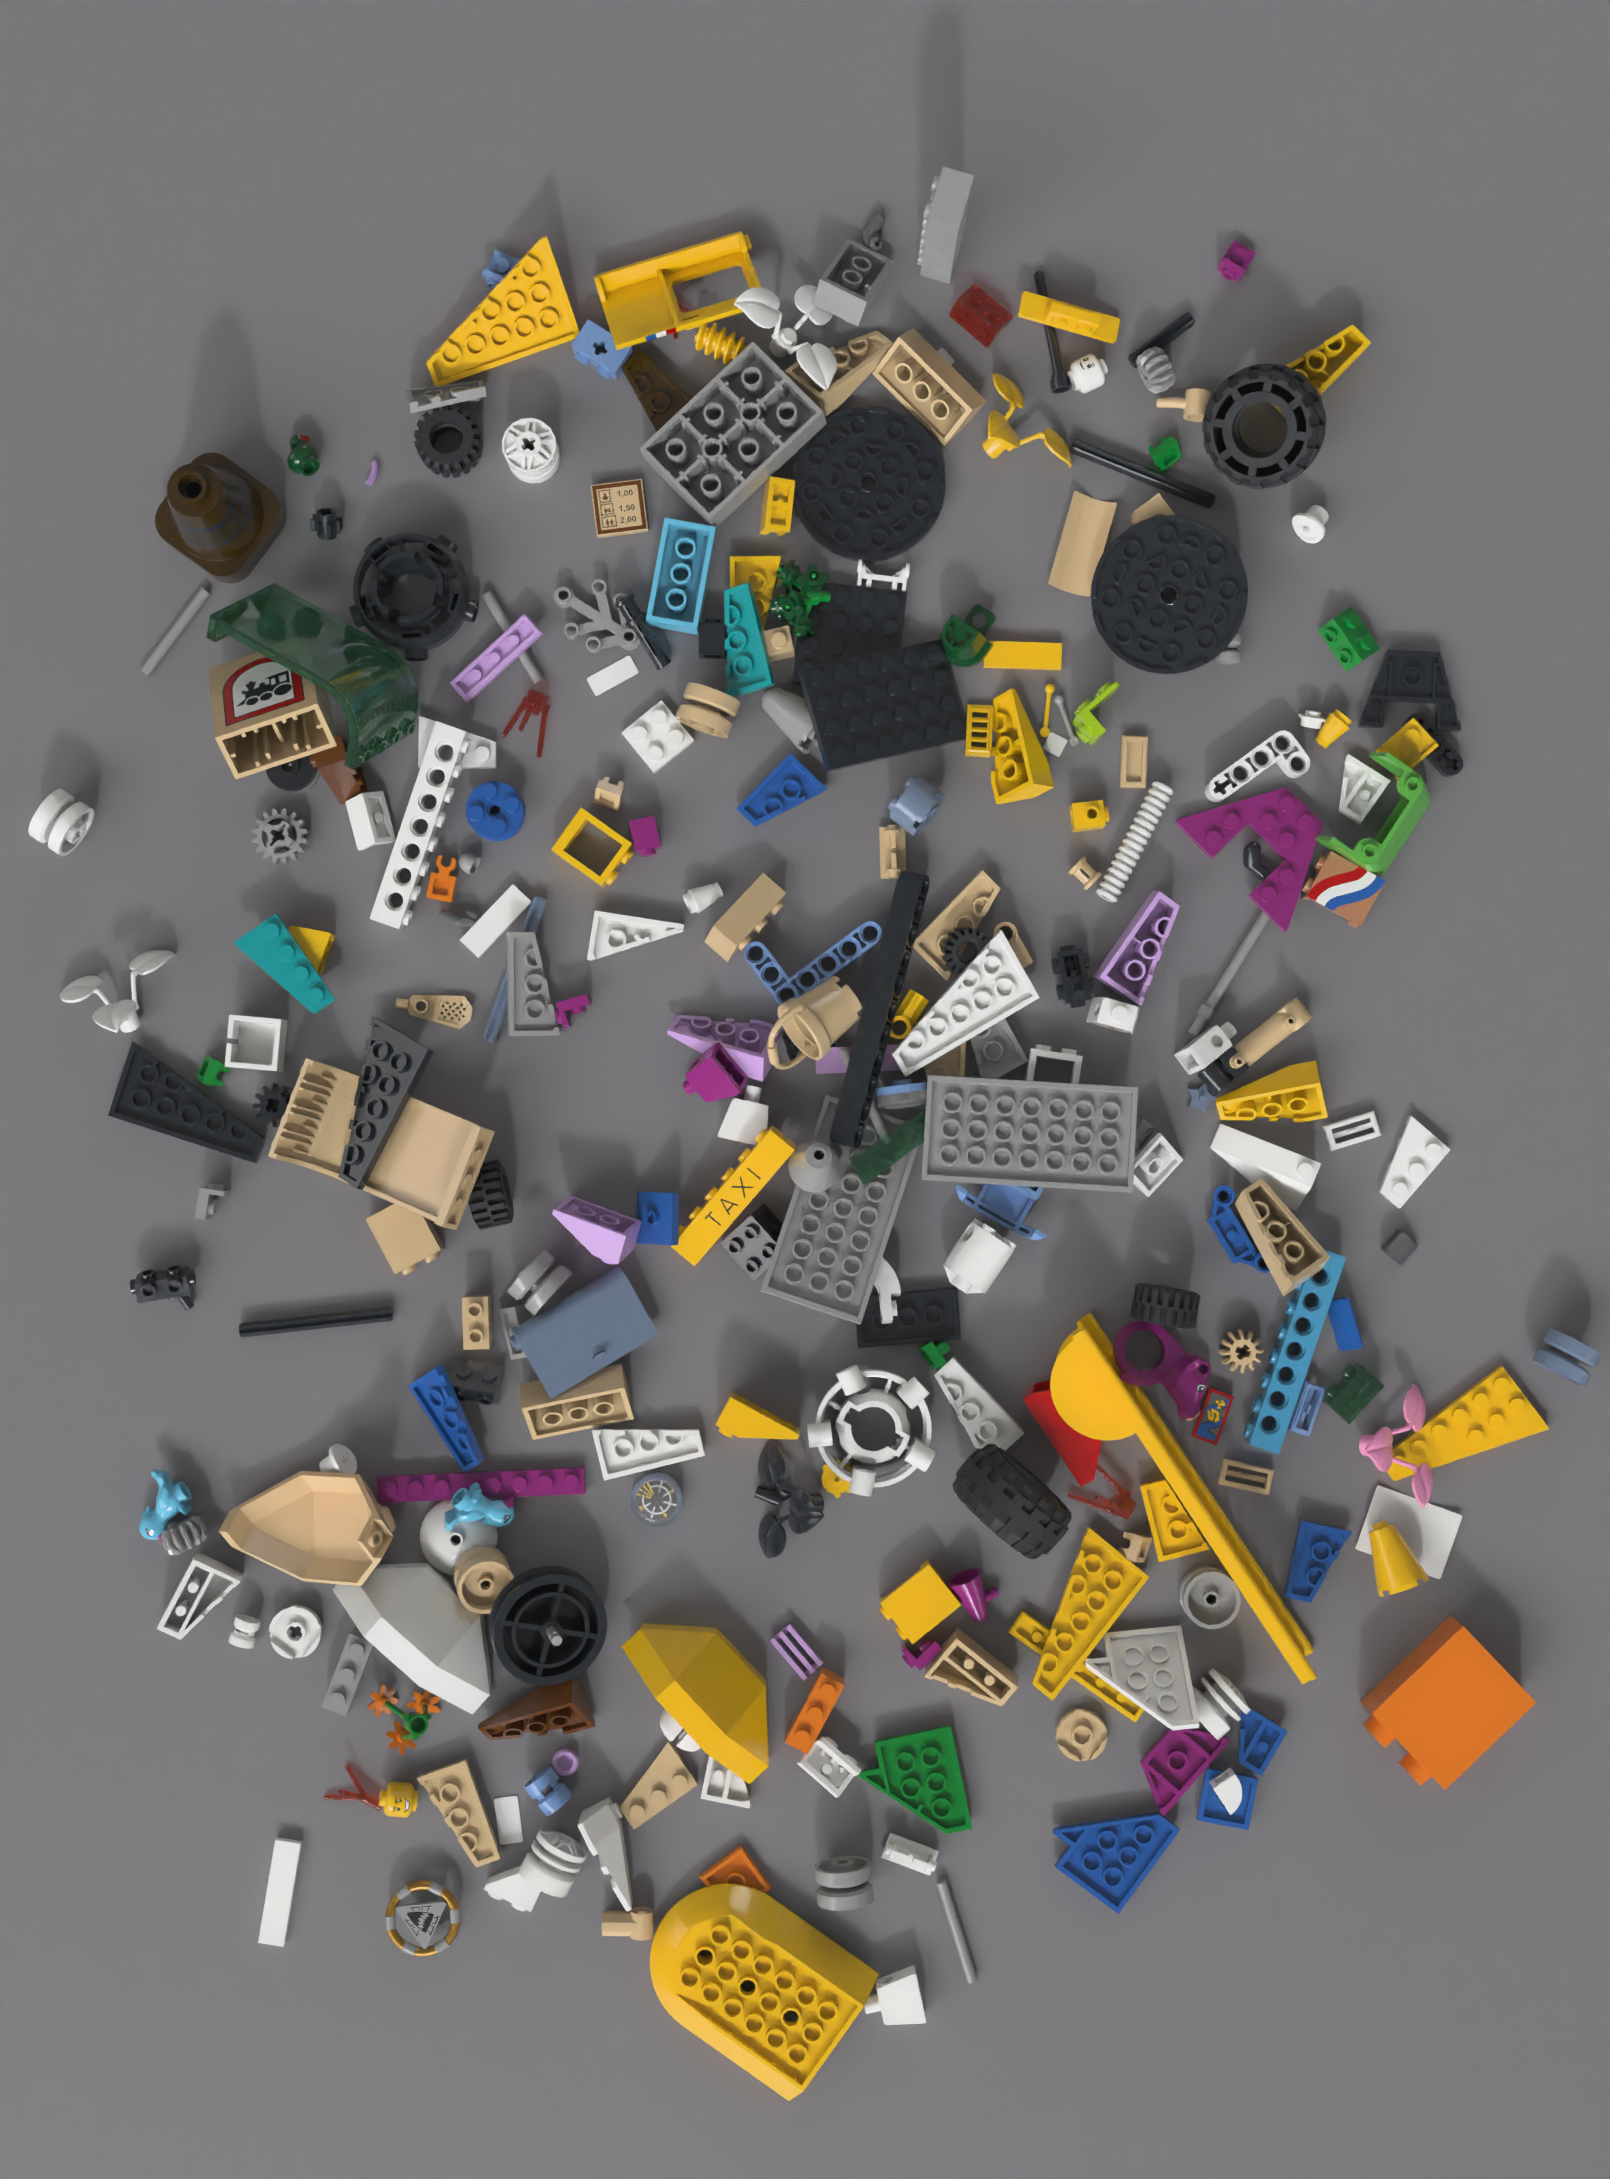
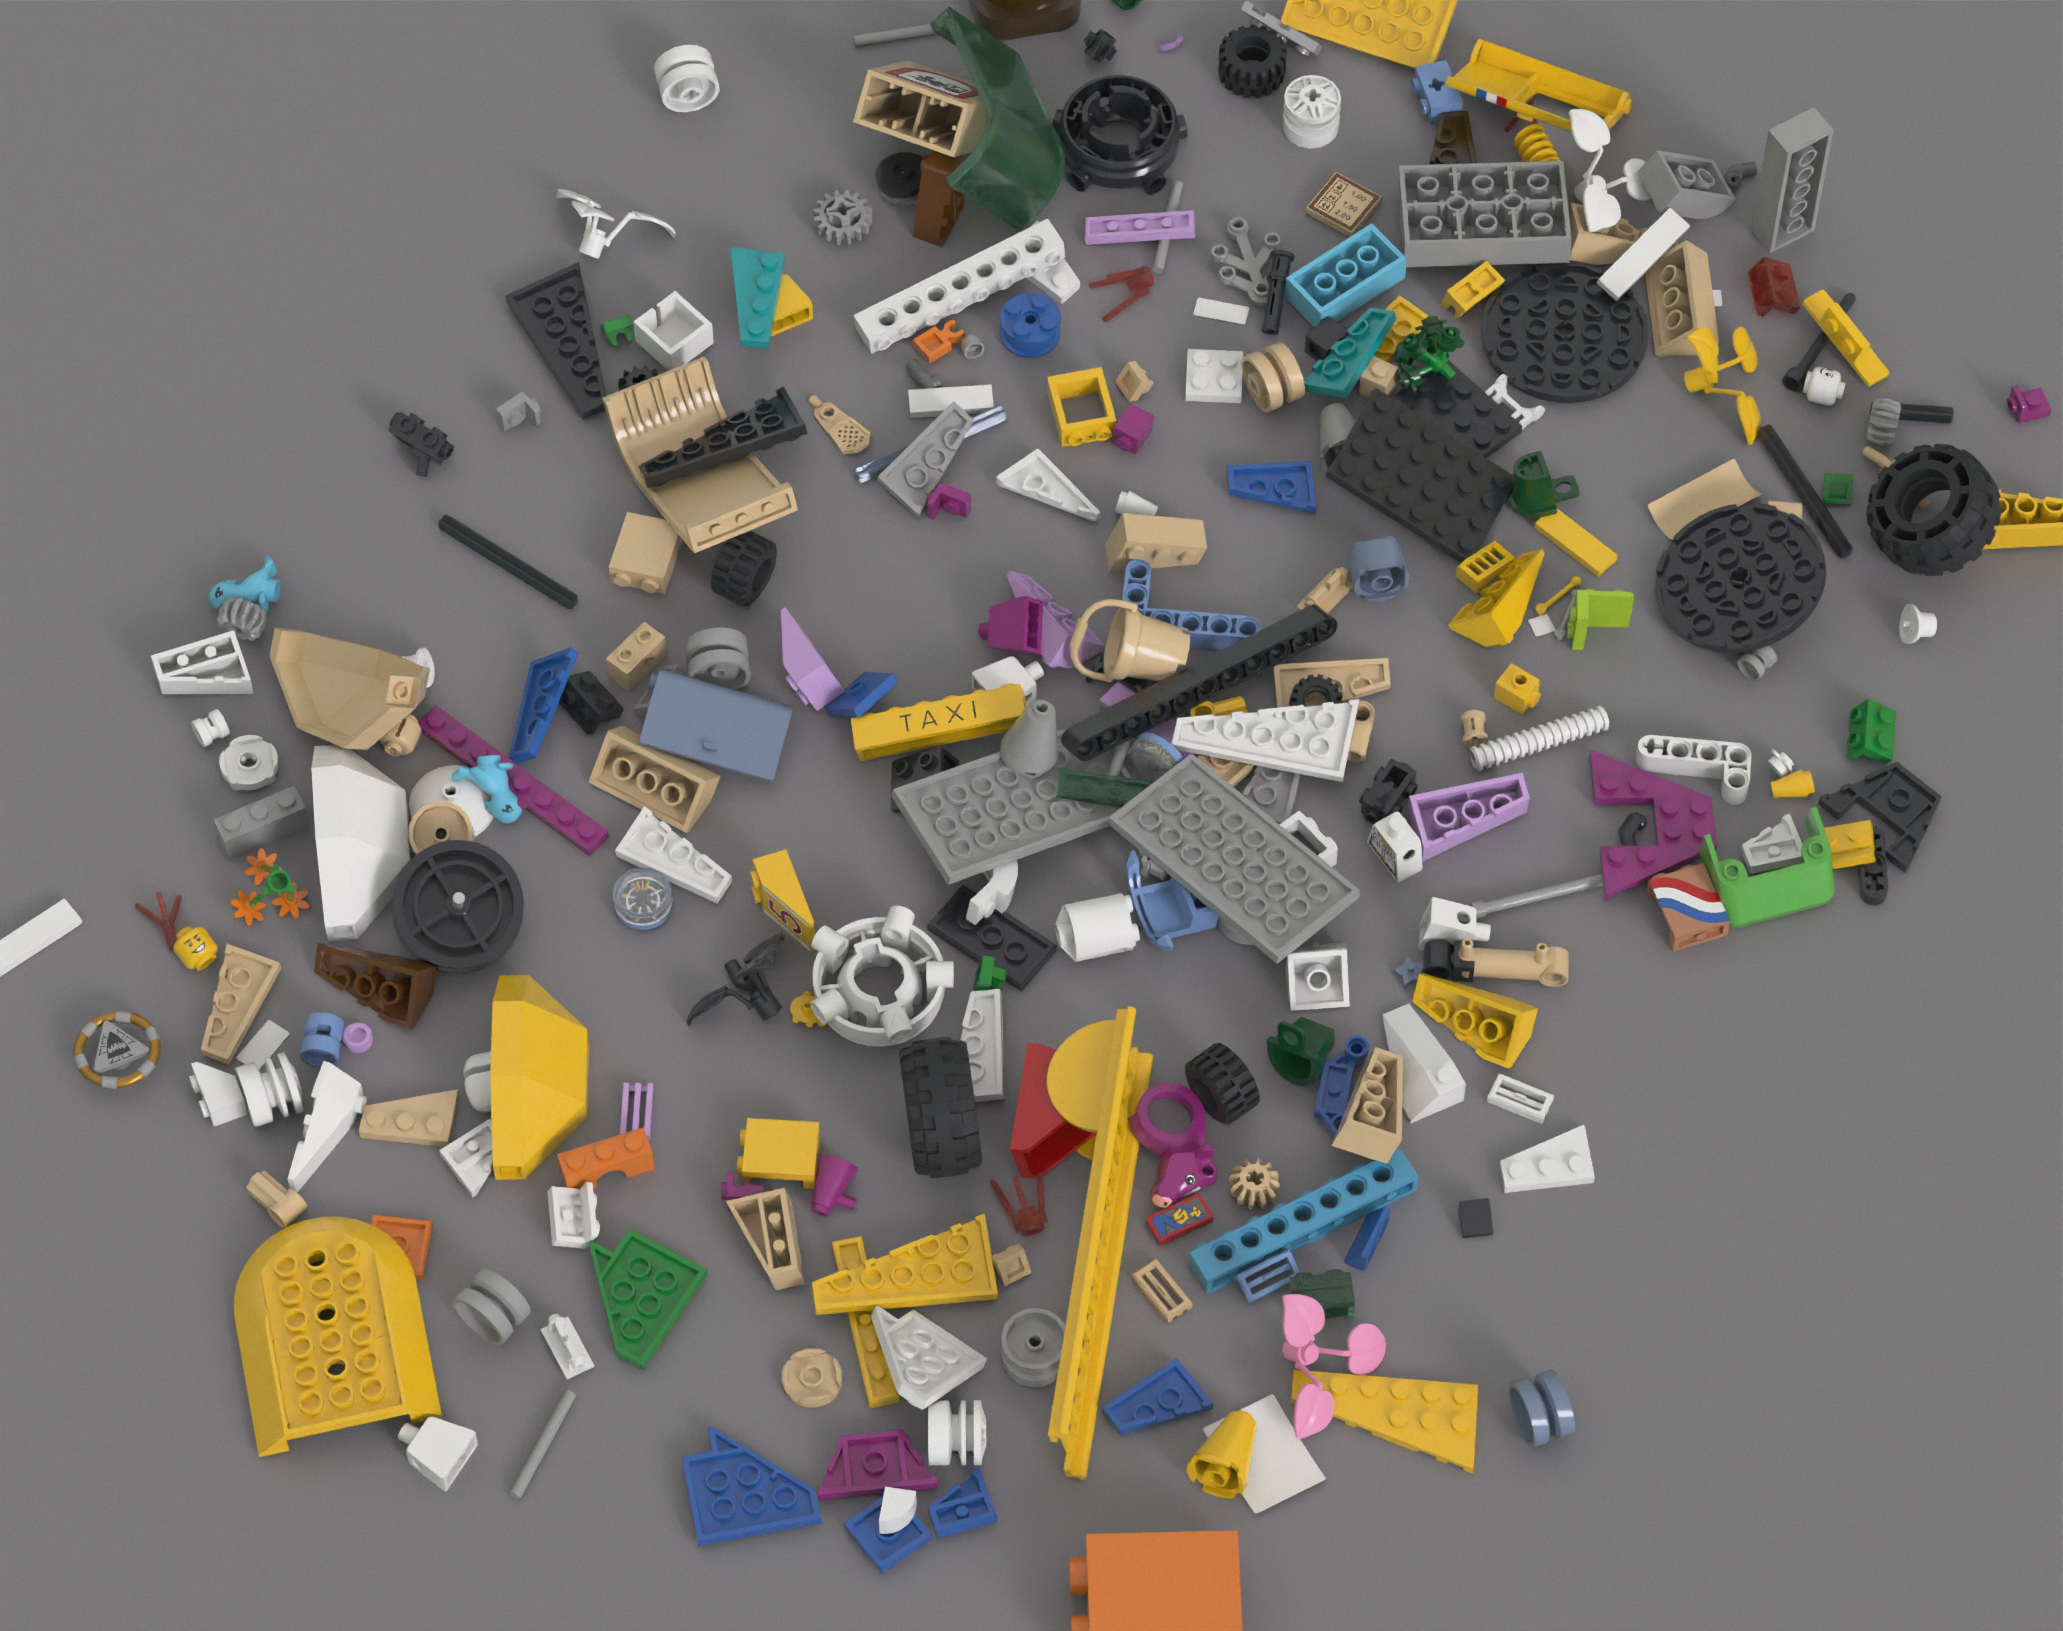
camera: 40 degrees right, 30 degrees down
(370, 820) = (925, 257): white panel -> none
(874, 372) = (1643, 254): none -> white tile
(1133, 761) = (1596, 685): tan tile -> none
(1169, 1524) = (1053, 1271): yellow wing -> none
(1189, 1227) = (1300, 1050): none -> dark green container

